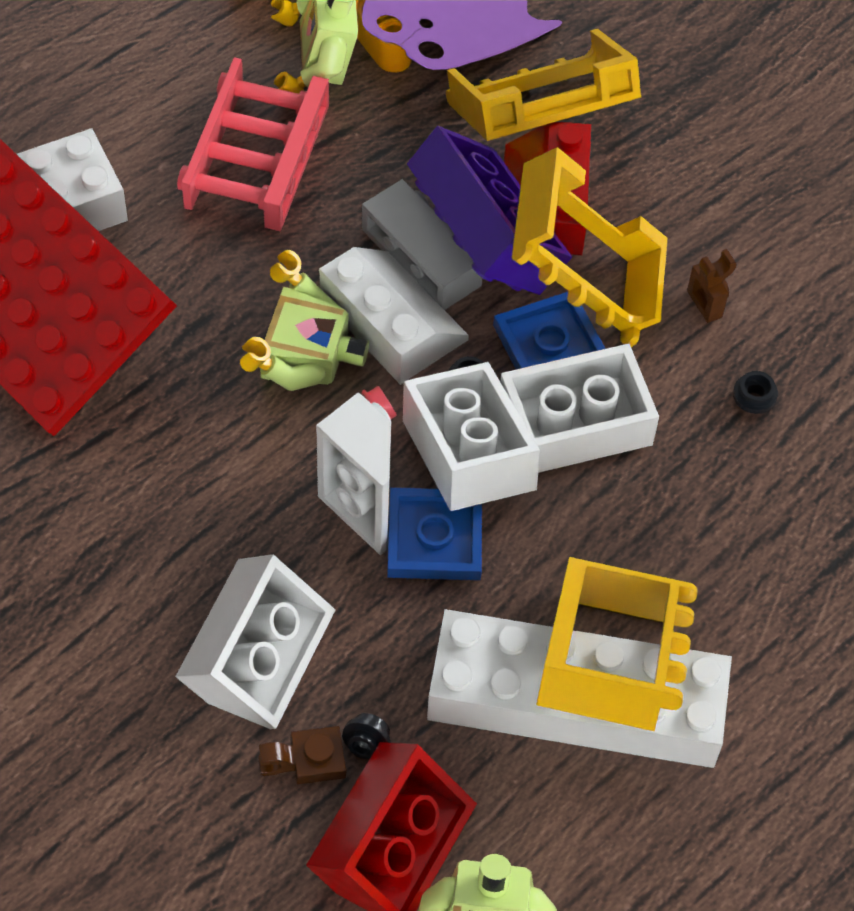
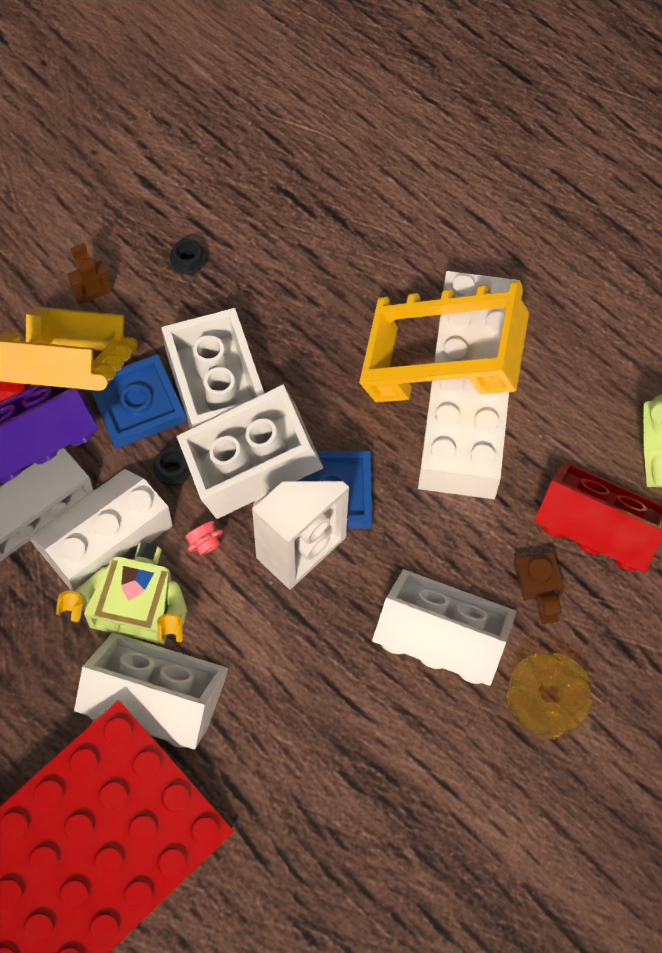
camera: 90 degrees left, 5 degrees up
(165, 775) = (550, 718): none -> clear yellow plate
(197, 356) = (159, 687): none -> white slope
(364, 734) = (524, 535): black plate -> none

